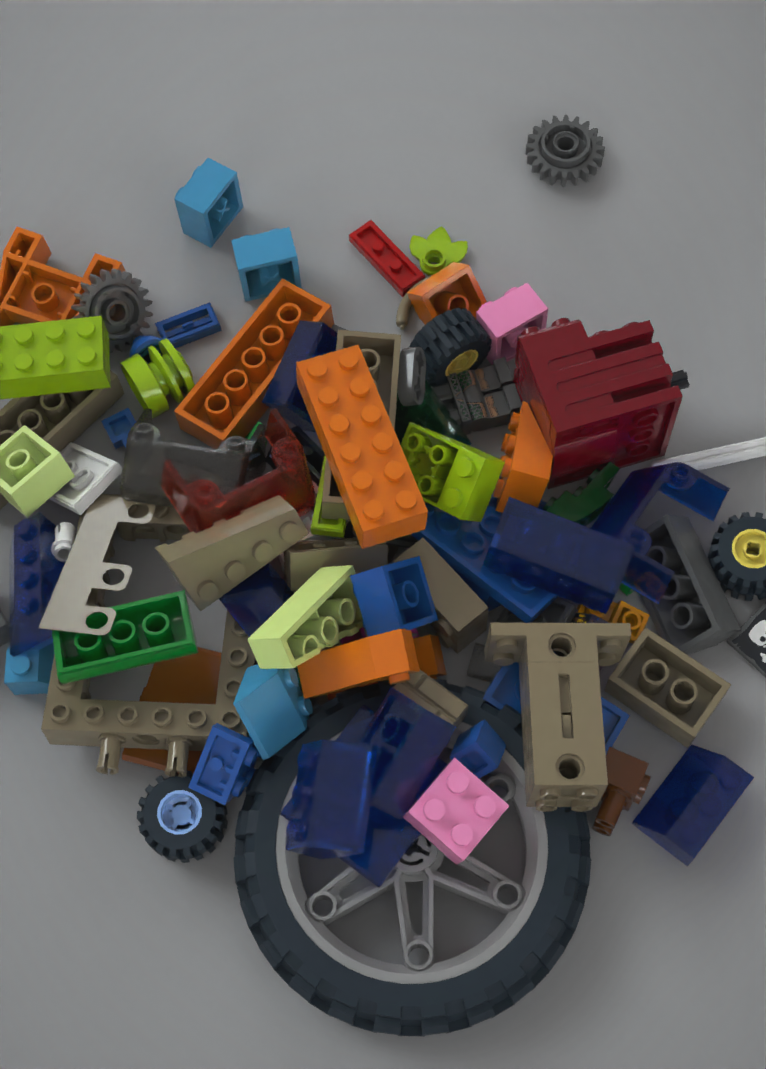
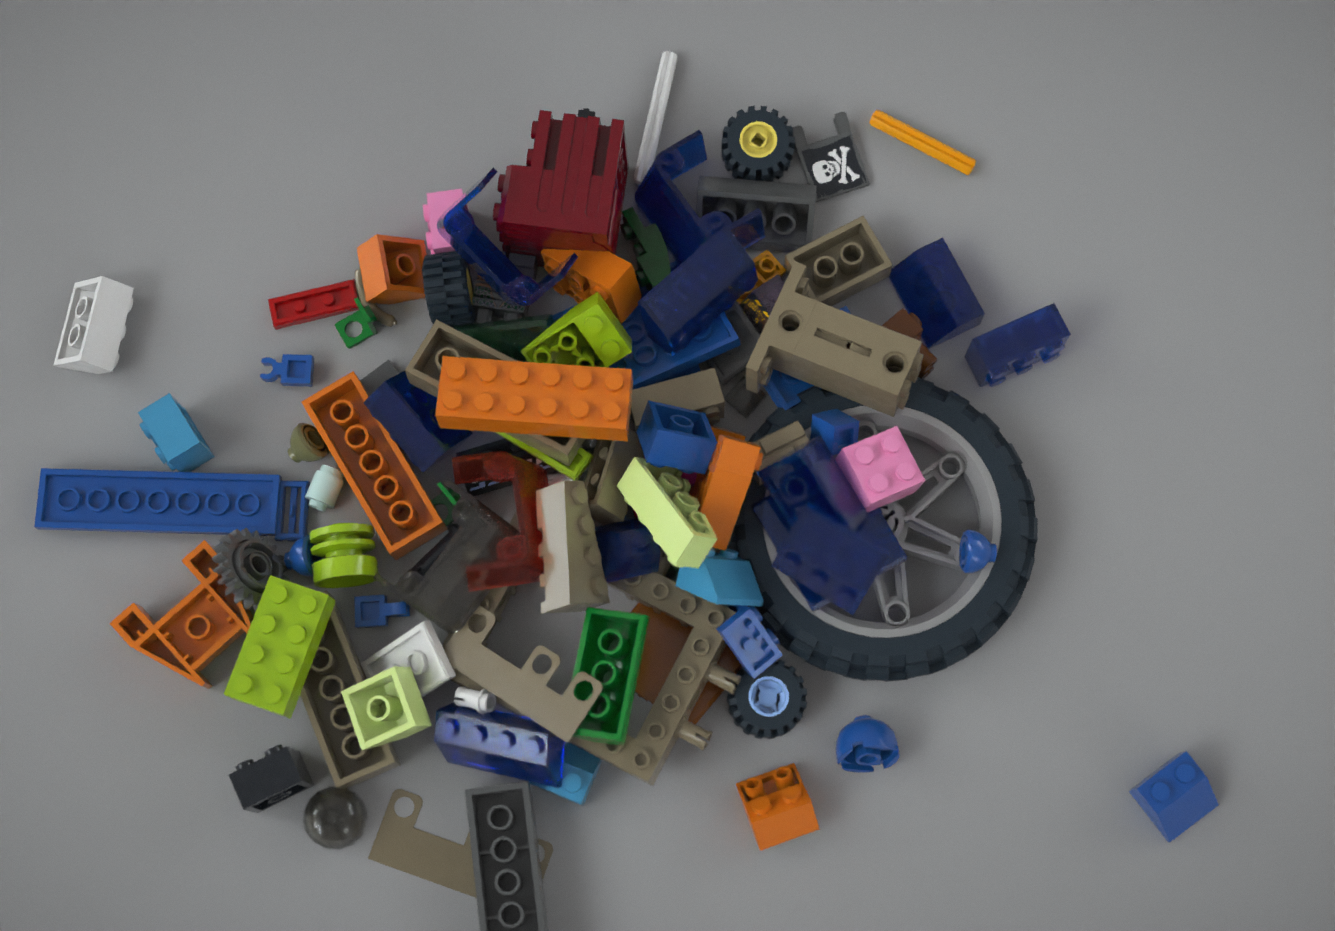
camera: 65 degrees left, 10 degrees up
(77, 876) = (777, 806): none -> orange slope
(148, 223) = (157, 501): none -> blue plate
(175, 937) = (866, 744): none -> blue cylinder
(215, 338) = (325, 488): none -> light aqua brick
(248, 303) = (306, 444): none -> olive brick
(264, 261) = (272, 409): dark azure brick -> none
(280, 107) = (94, 326): none -> white slope
(314, 266) = (293, 371): none -> blue plate
(392, 298) = (363, 316): none -> green bracket
(411, 376) = (475, 329): dark grey beam -> none
(418, 956) = (975, 551): none -> blue brick
(437, 249) = (329, 255): lime plate -> none
(490, 348) = (459, 230): none -> clear blue windscreen
(564, 150) = (282, 82): dark grey gear -> none
(678, 910) = (1017, 346): none -> clear blue brick

